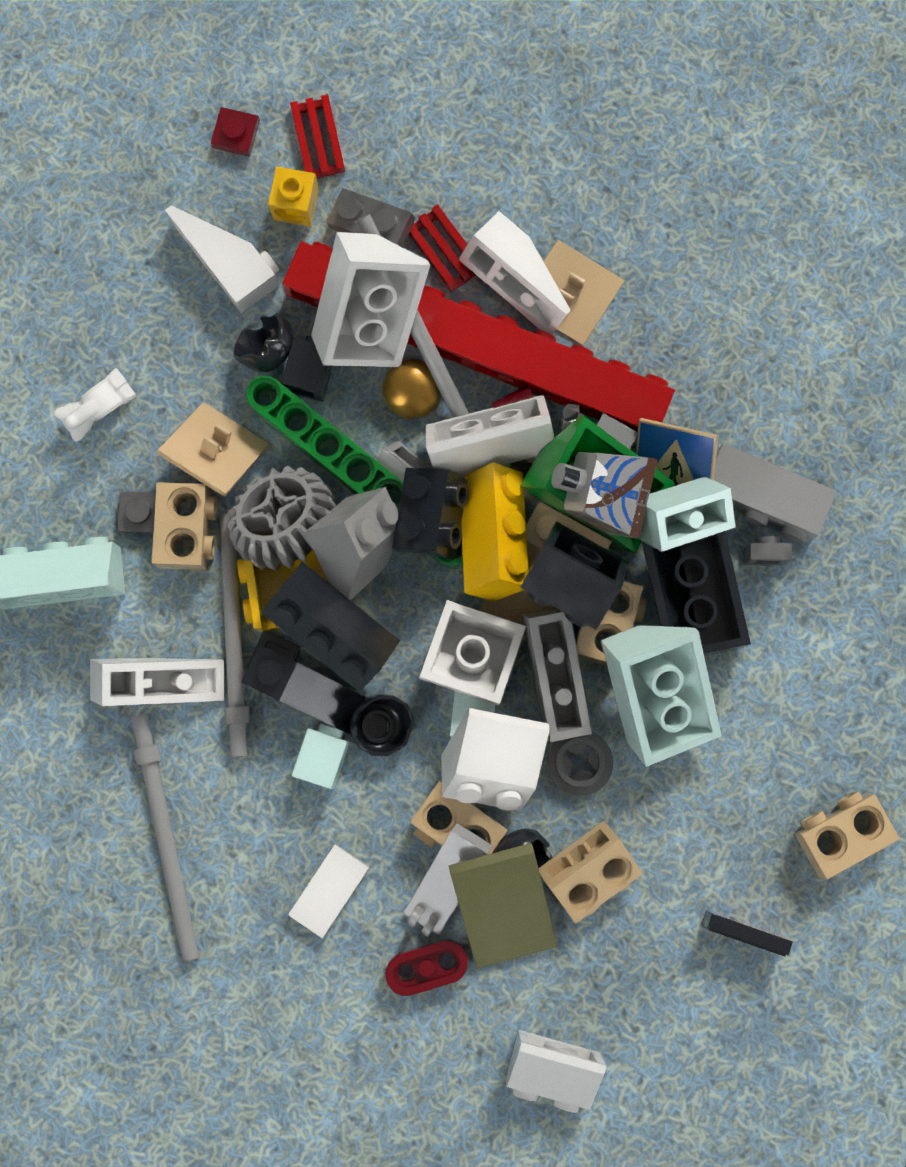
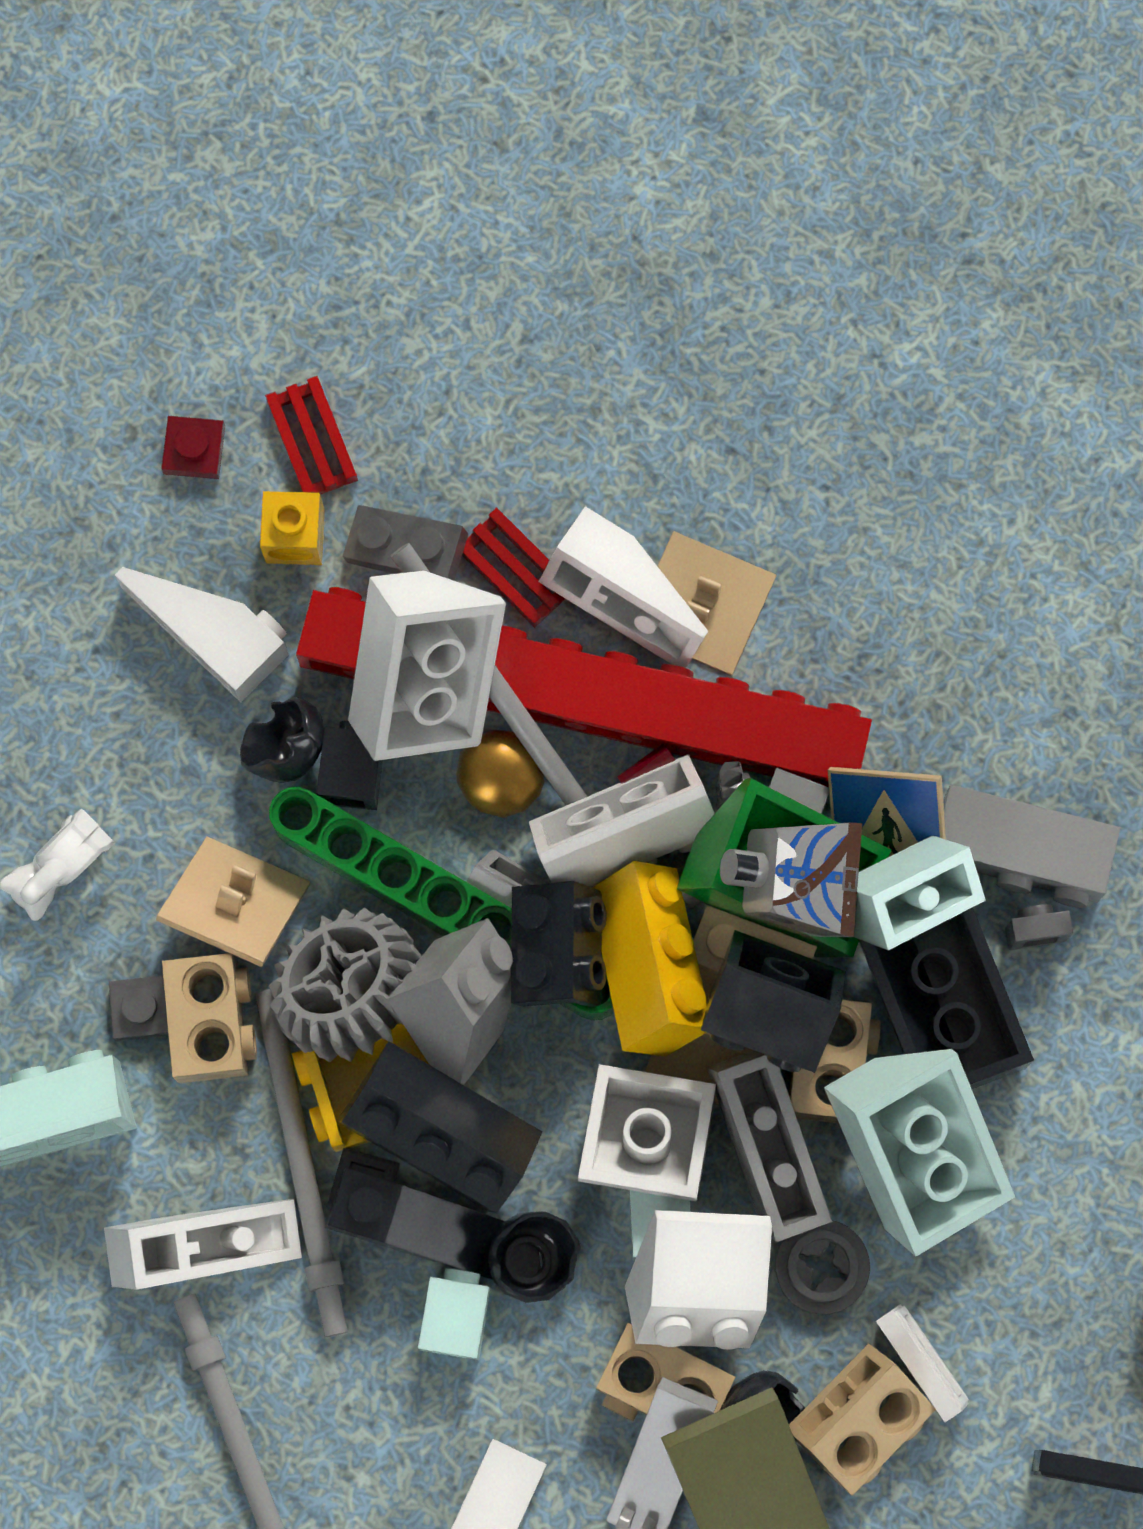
camera: 10 degrees left, 5 degrees down
(639, 839) = (923, 1362): none -> white tile

